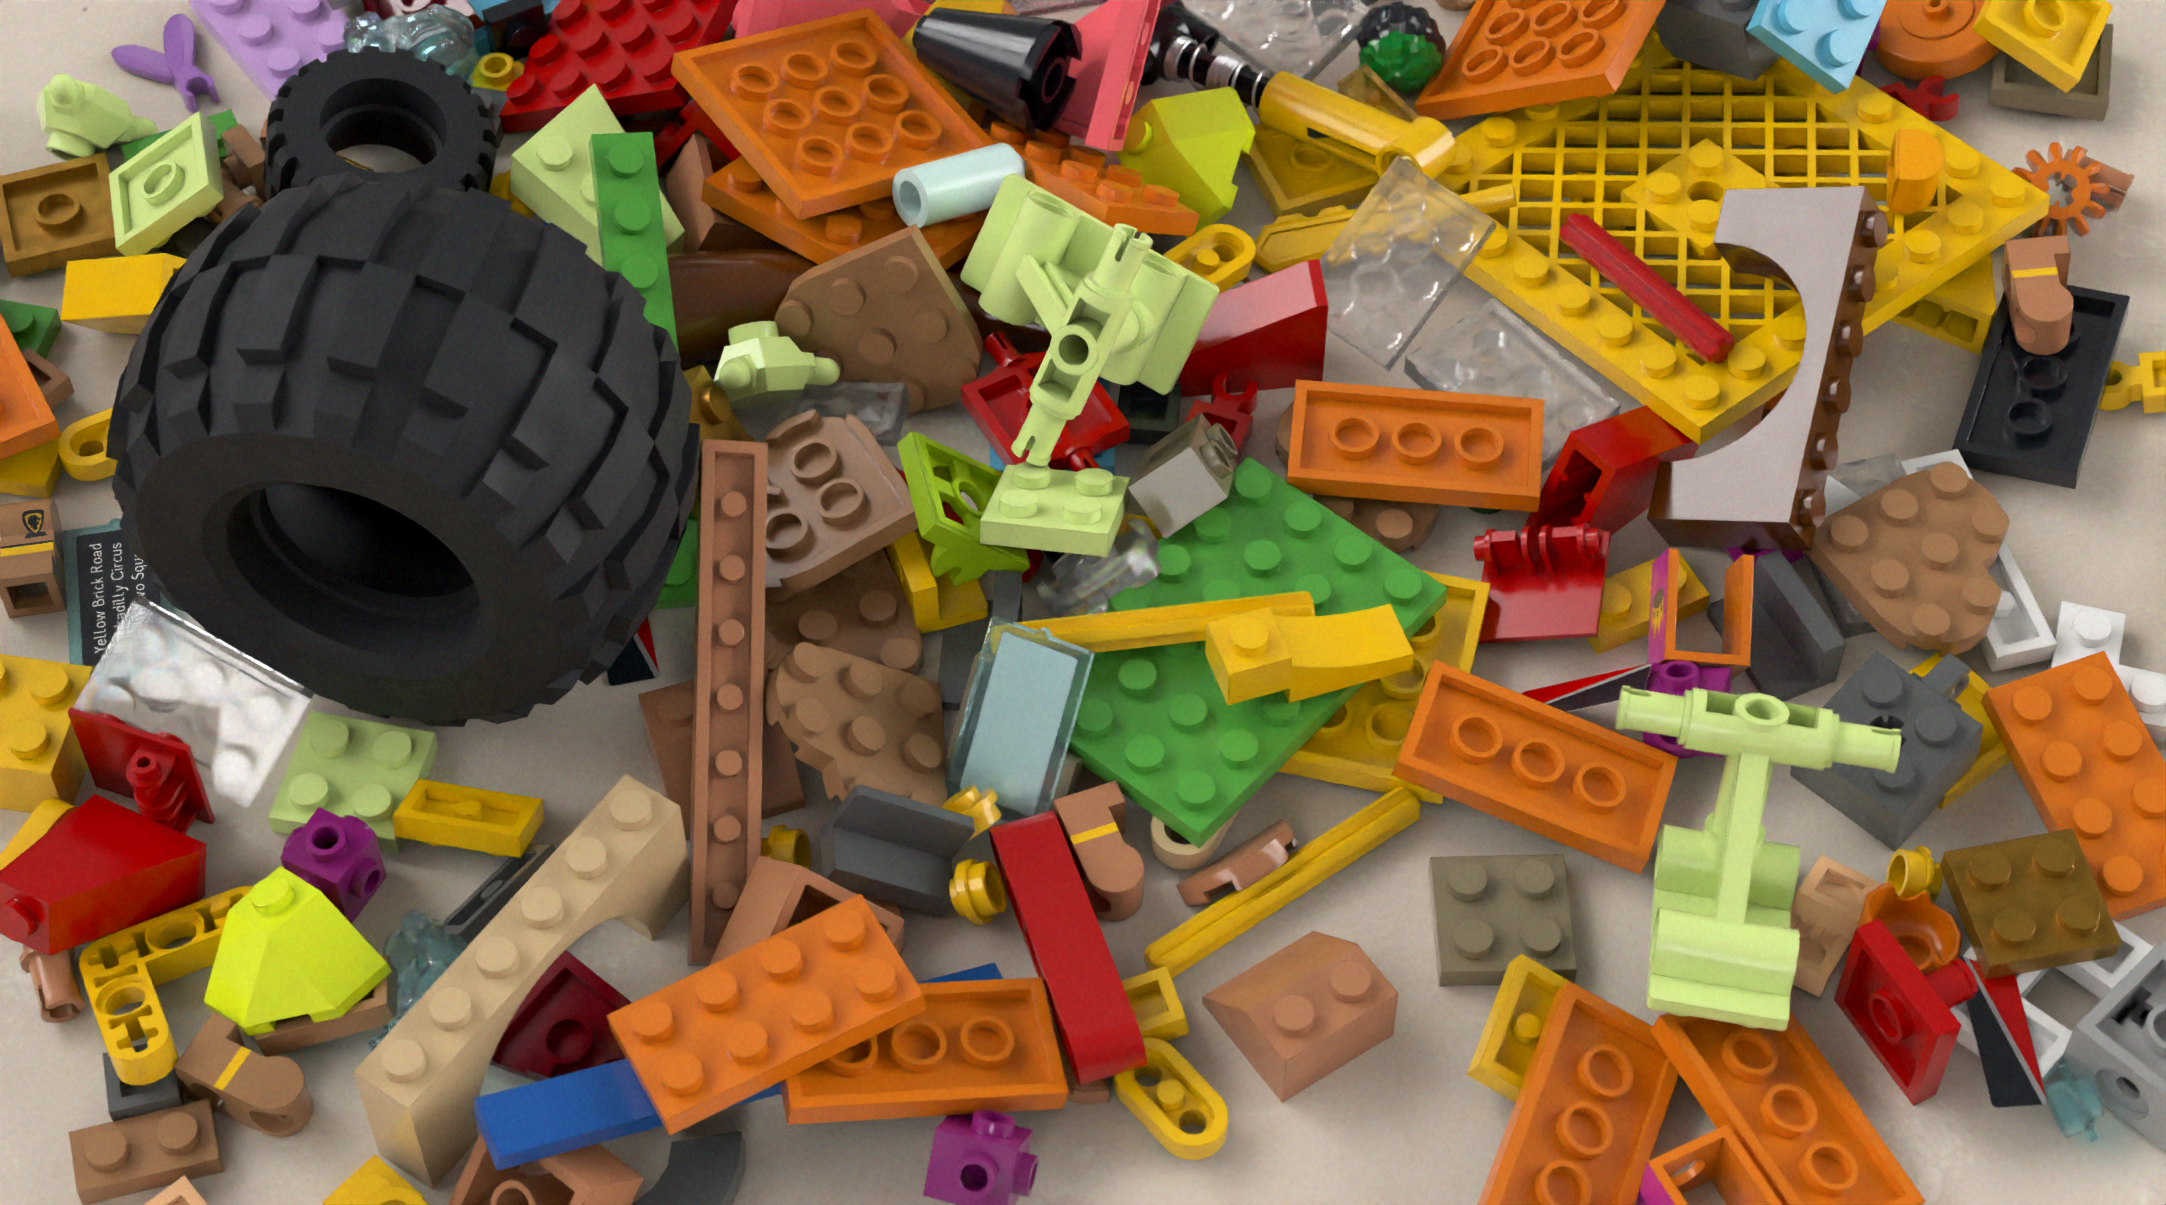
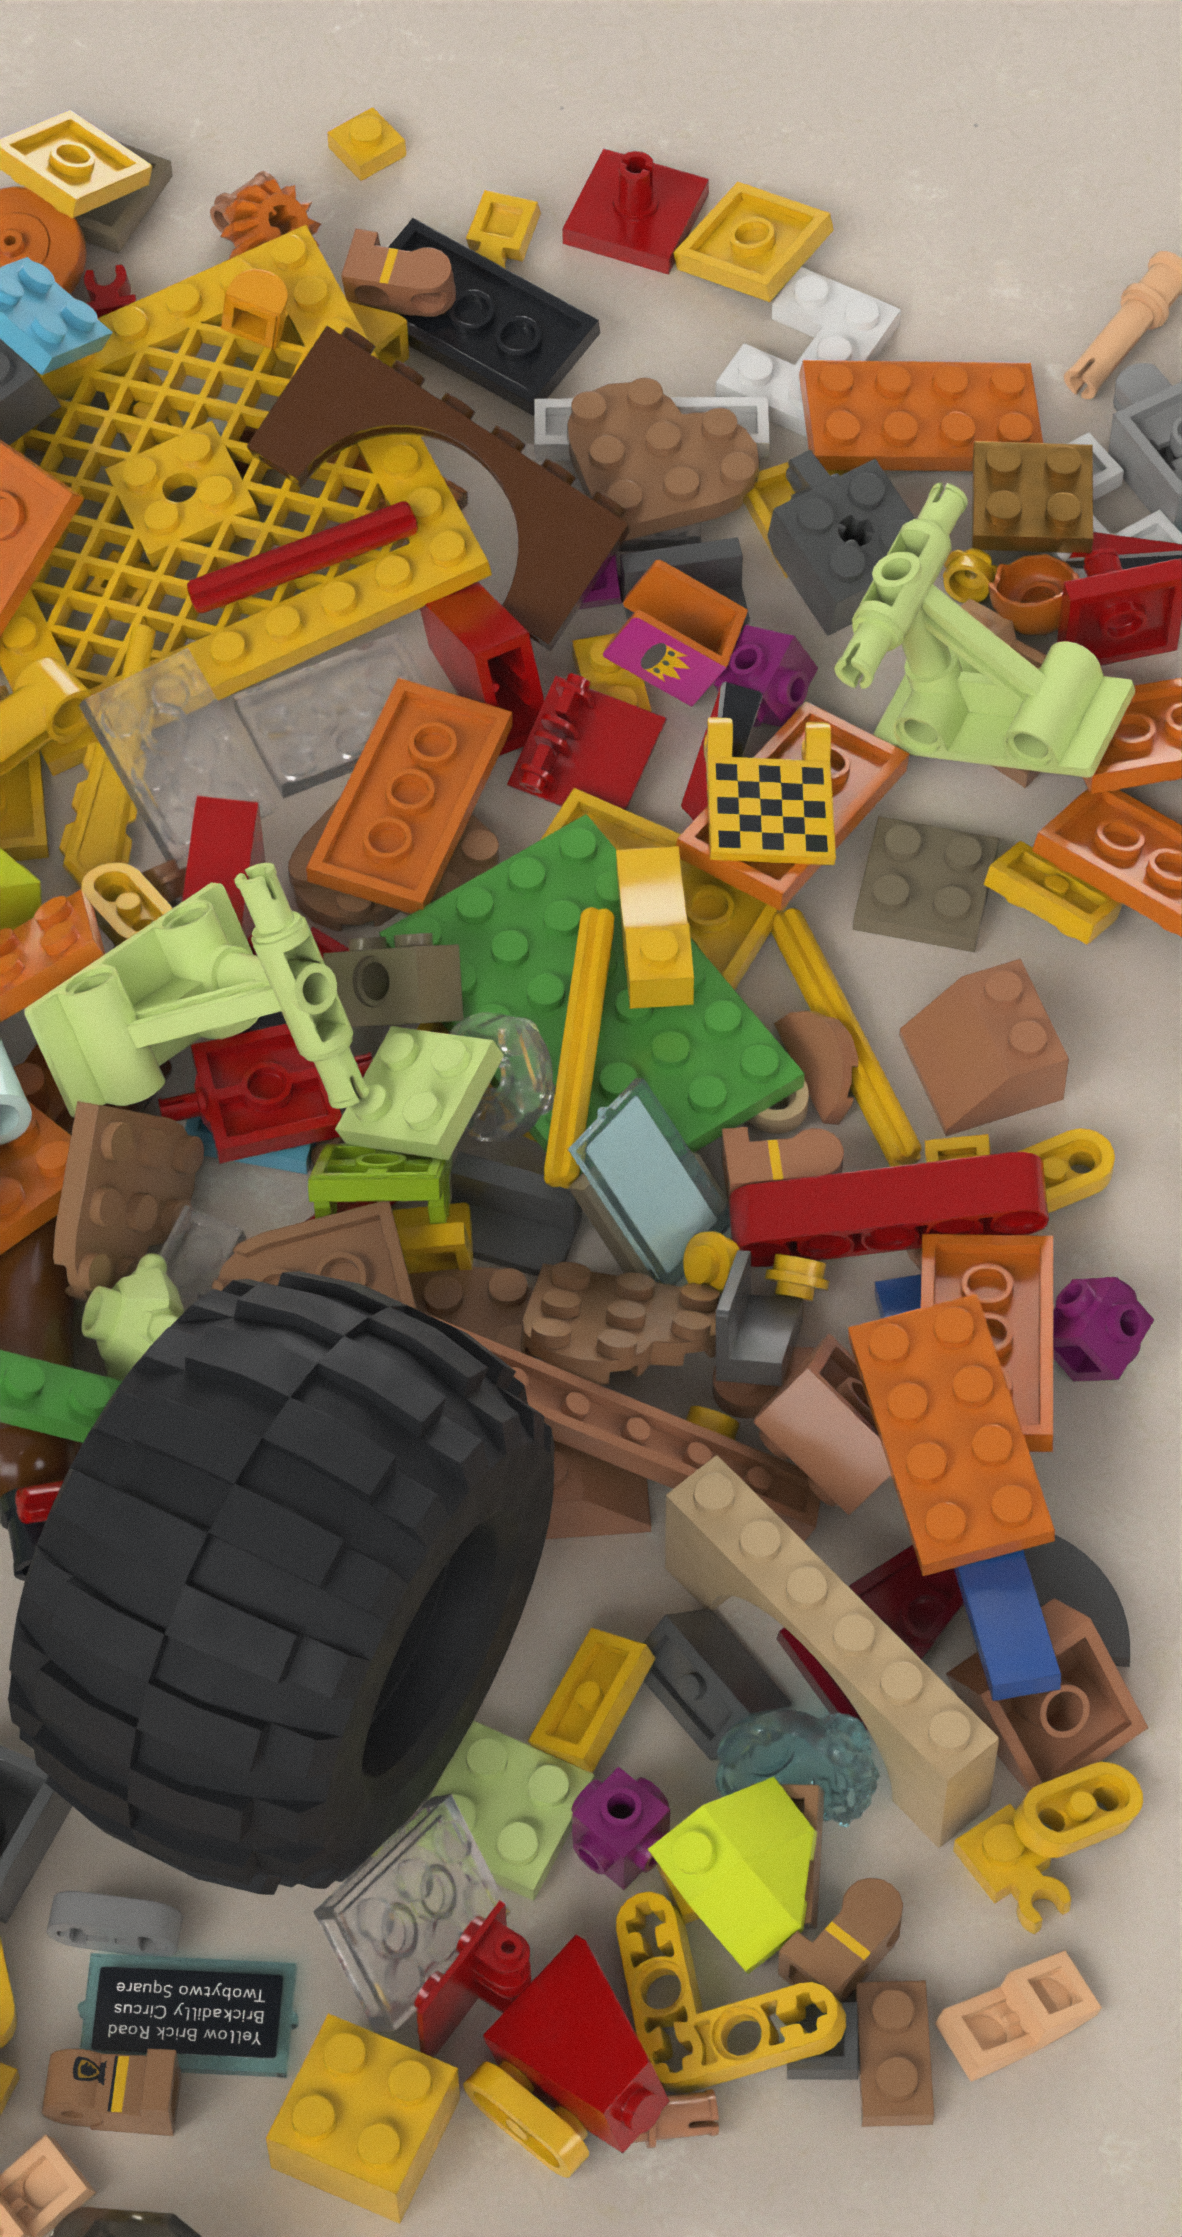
camera: 75 degrees left, 5 degrees up
(1508, 733) = (770, 805): none -> yellow flag

